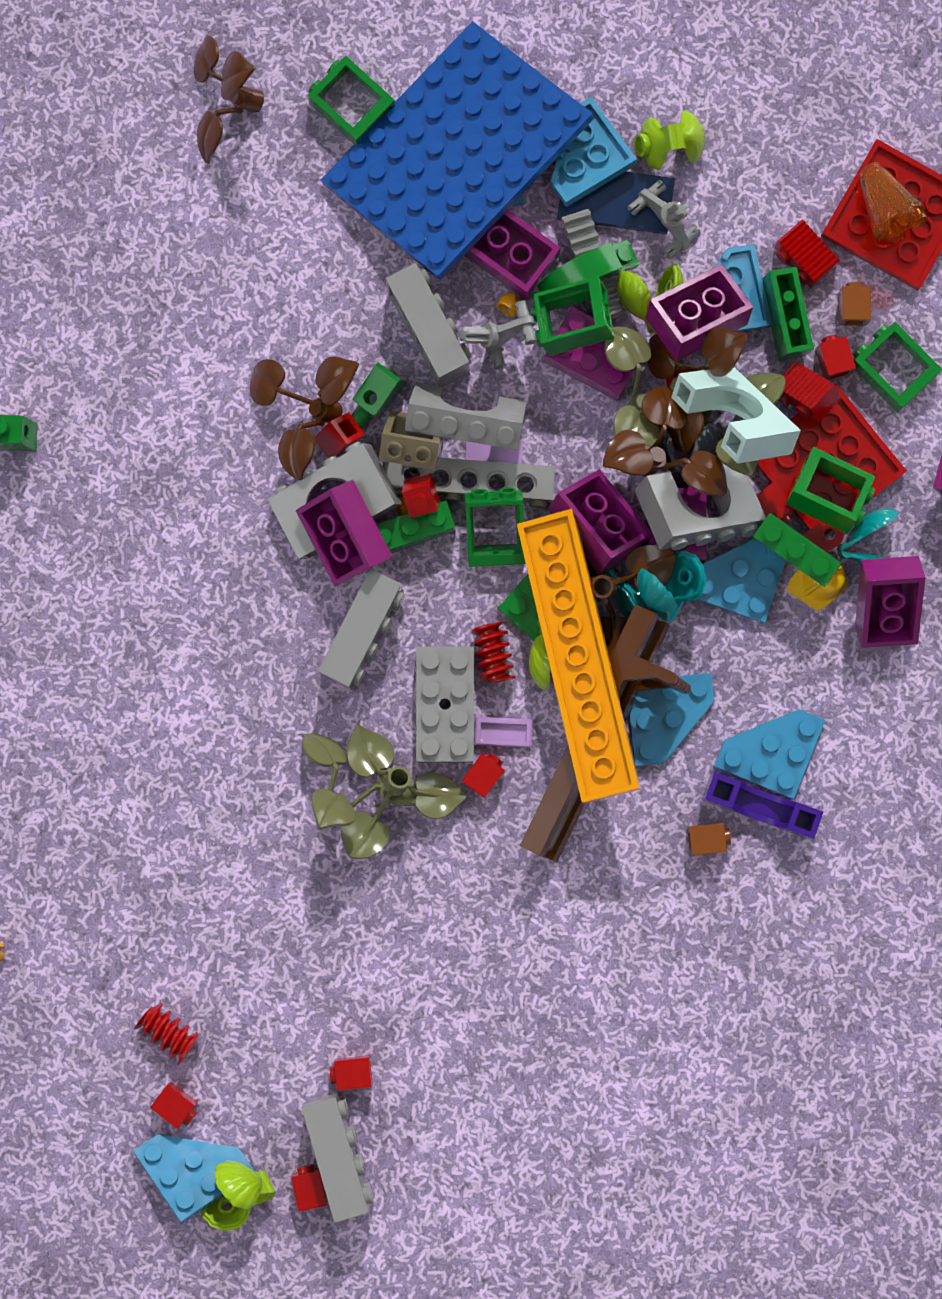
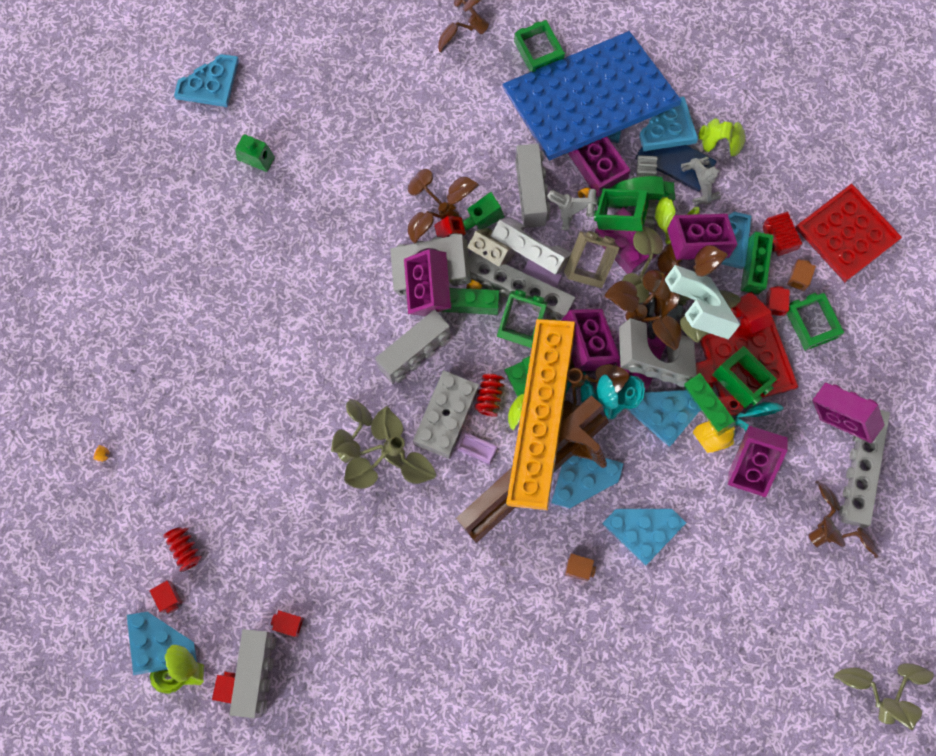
camera: 25 degrees right, 10 degrees down
(420, 495) = (484, 280): red brick -> none
(484, 774) = (452, 467): red brick -> none
(564, 428) = (594, 279): none -> dark tan window
(762, 806) = (634, 570): dark purple arch -> none
(889, 204) = (846, 222): clear orange cone -> none

